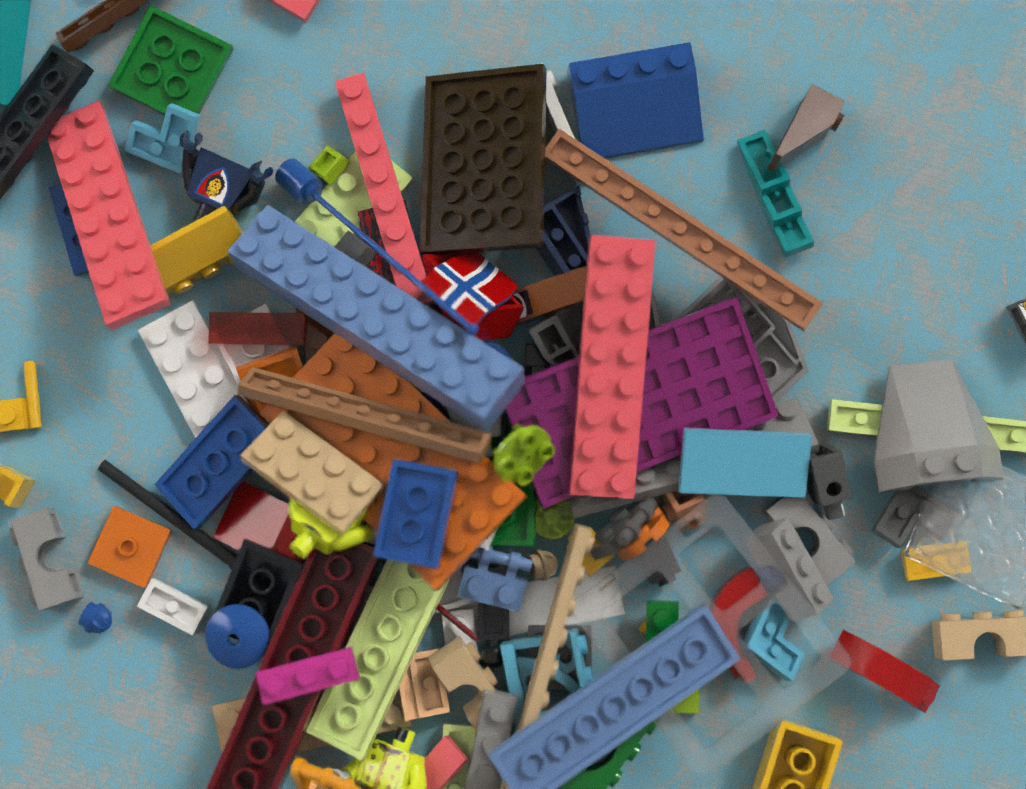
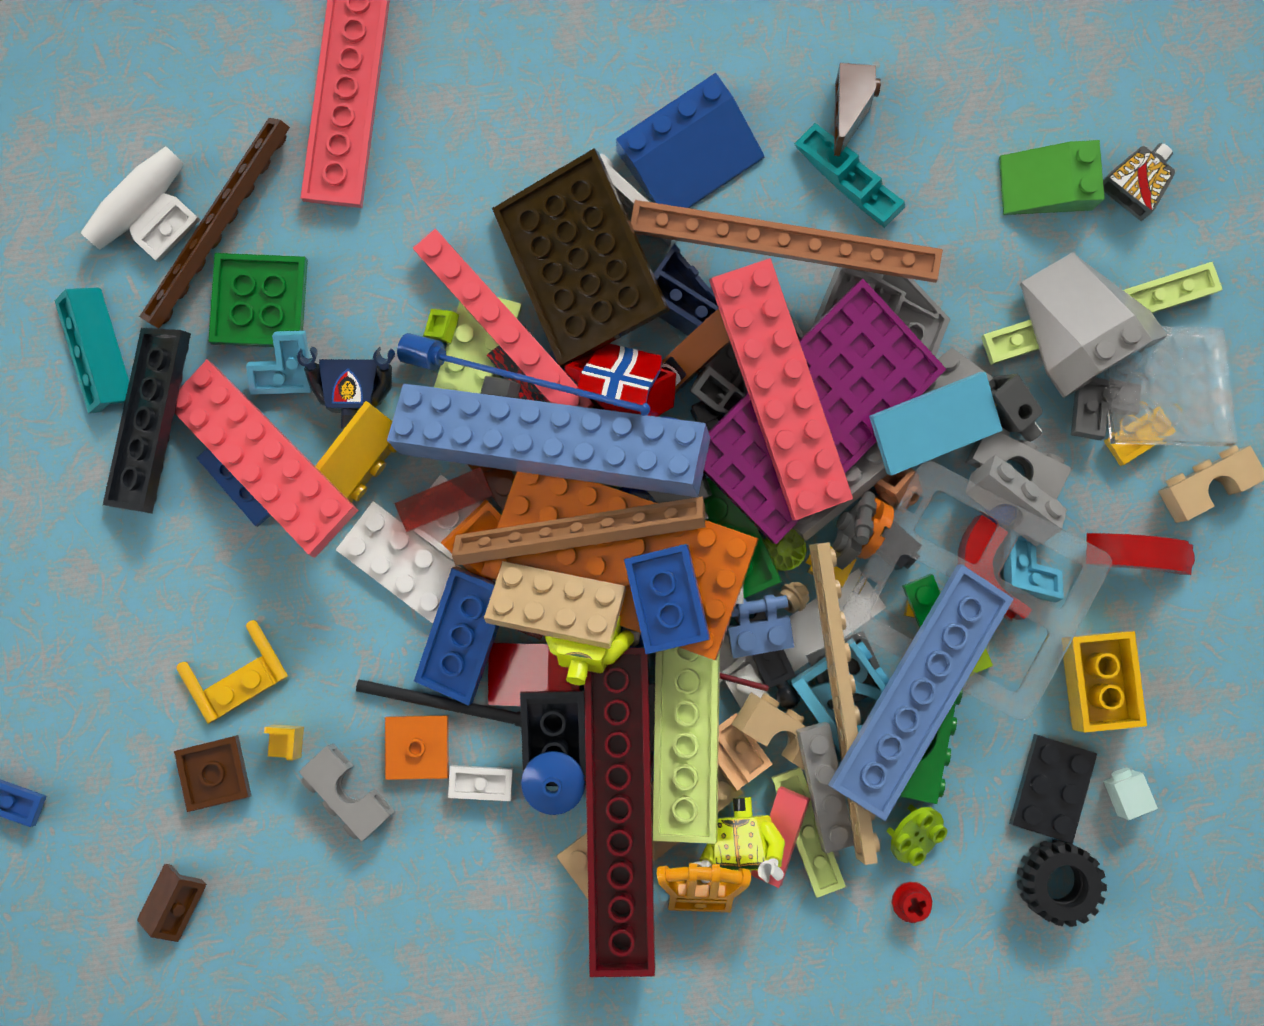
camera: 20 degrees left, 0 degrees up
(96, 618) = (416, 825): blue plate -> none
(307, 675) = (634, 789): dark pink plate -> none
(522, 454) = (738, 502): lime plate -> none
(964, 281) = (1052, 178): none -> bright green slope

